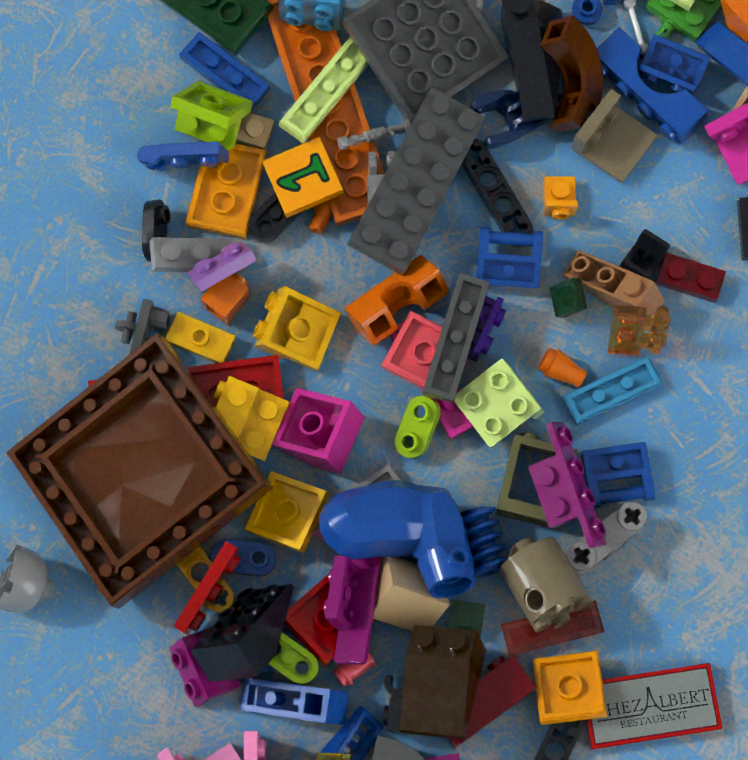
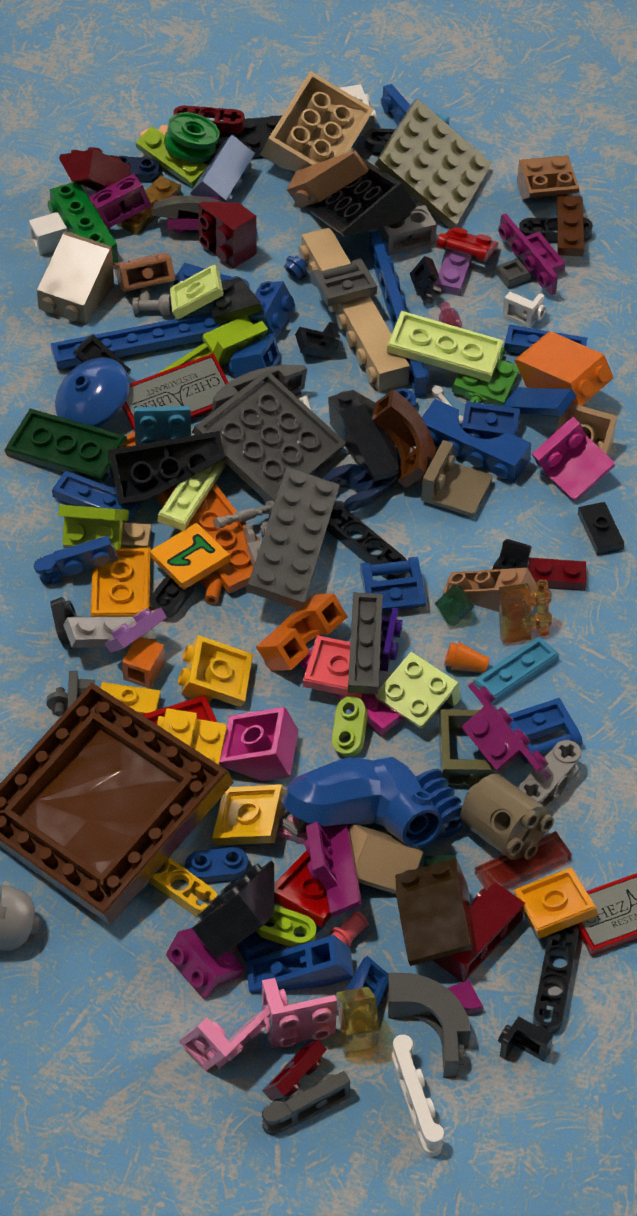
camera: 15 degrees left, 25 degrees down
(208, 589) = (193, 885): red plate -> none
(293, 59) = (154, 467): none -> black wedge
(392, 713) = (398, 958): black plate -> none
(559, 197) = (422, 536): light orange bracket -> none

